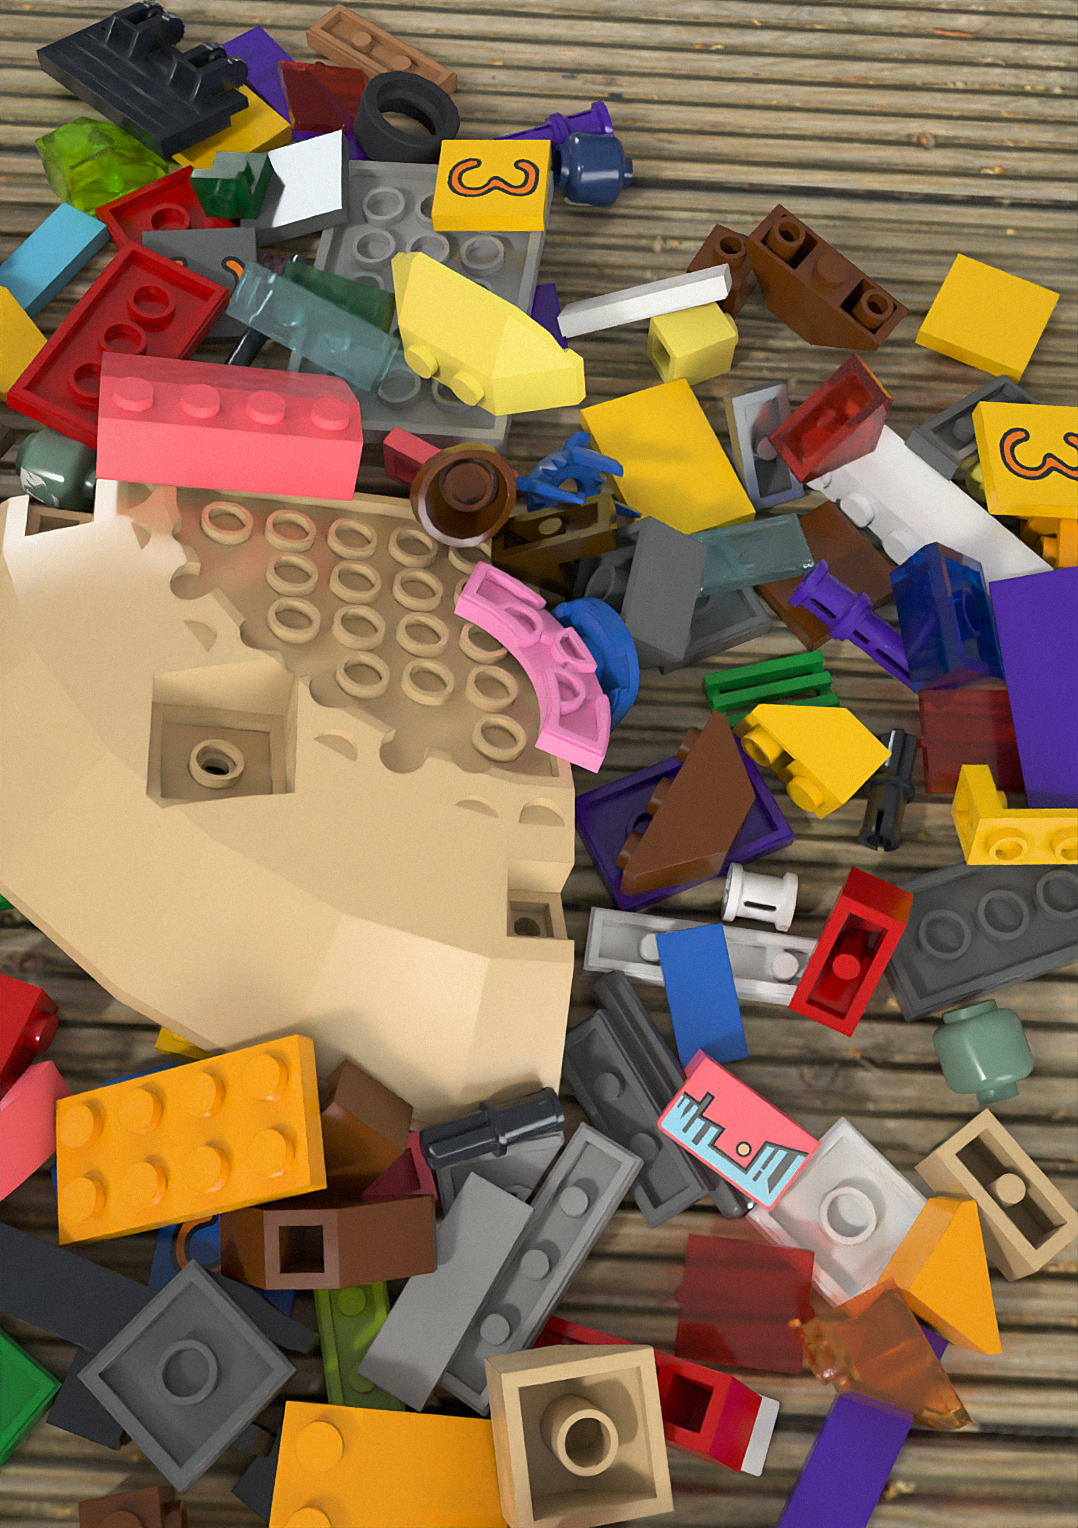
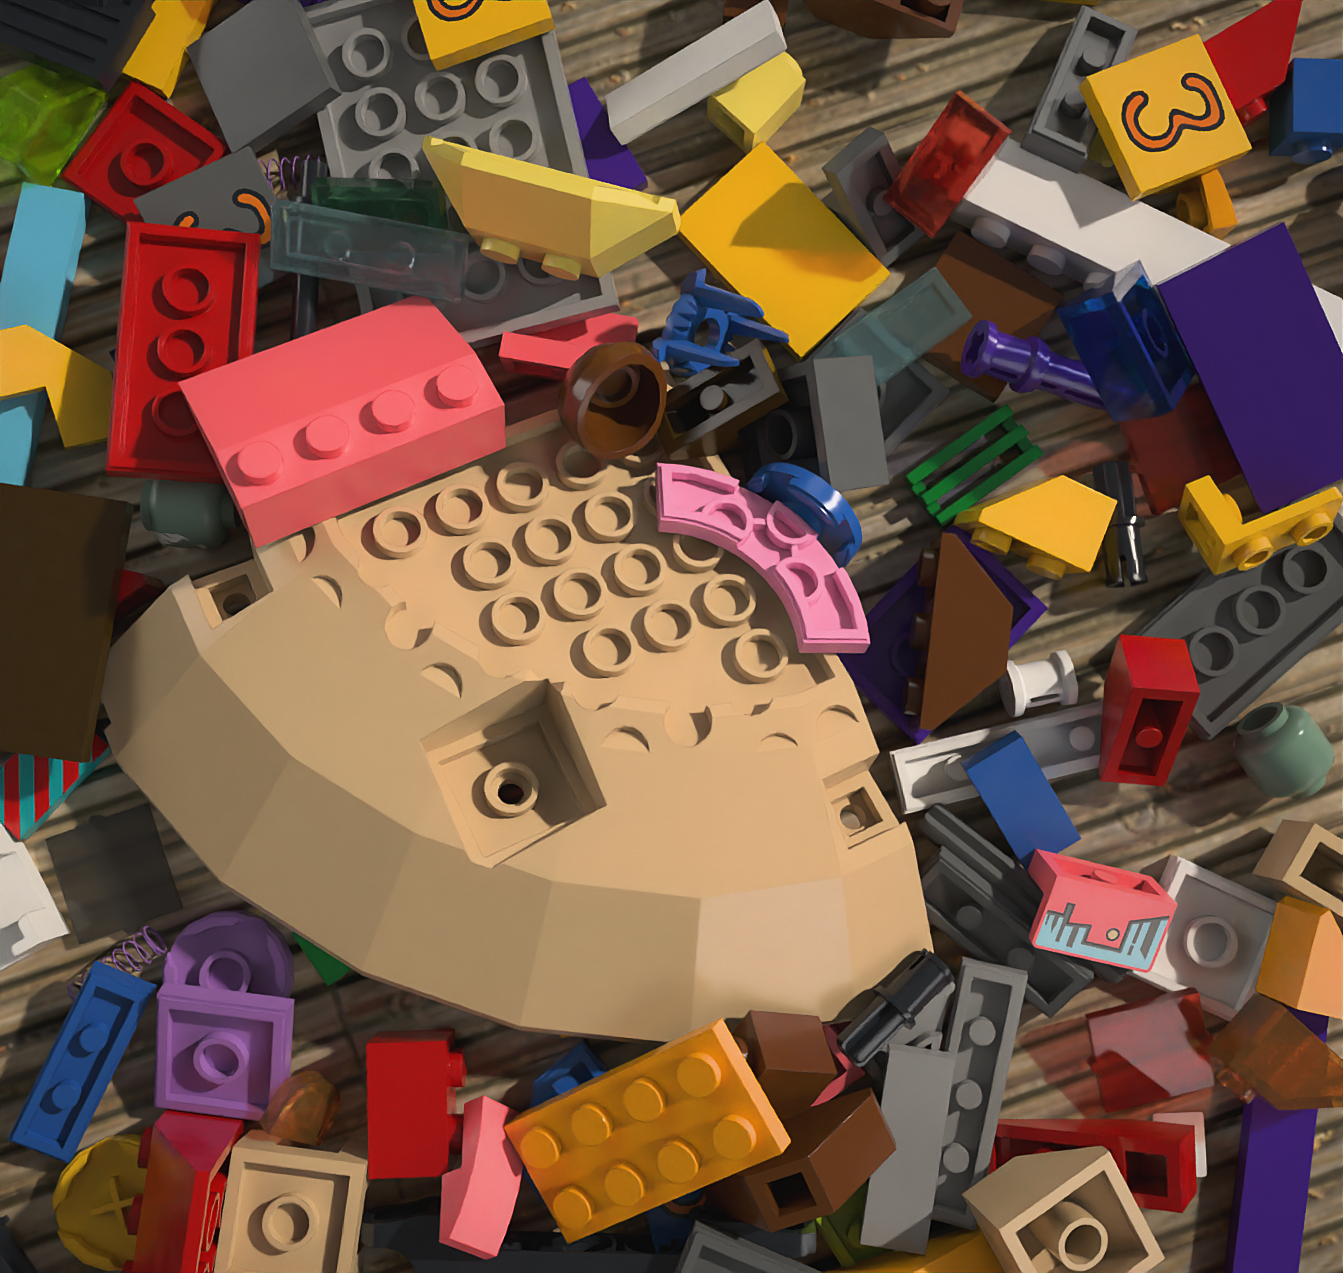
camera: 20 degrees left, 20 degrees up
(233, 185) = (198, 95): dark green bracket -> none

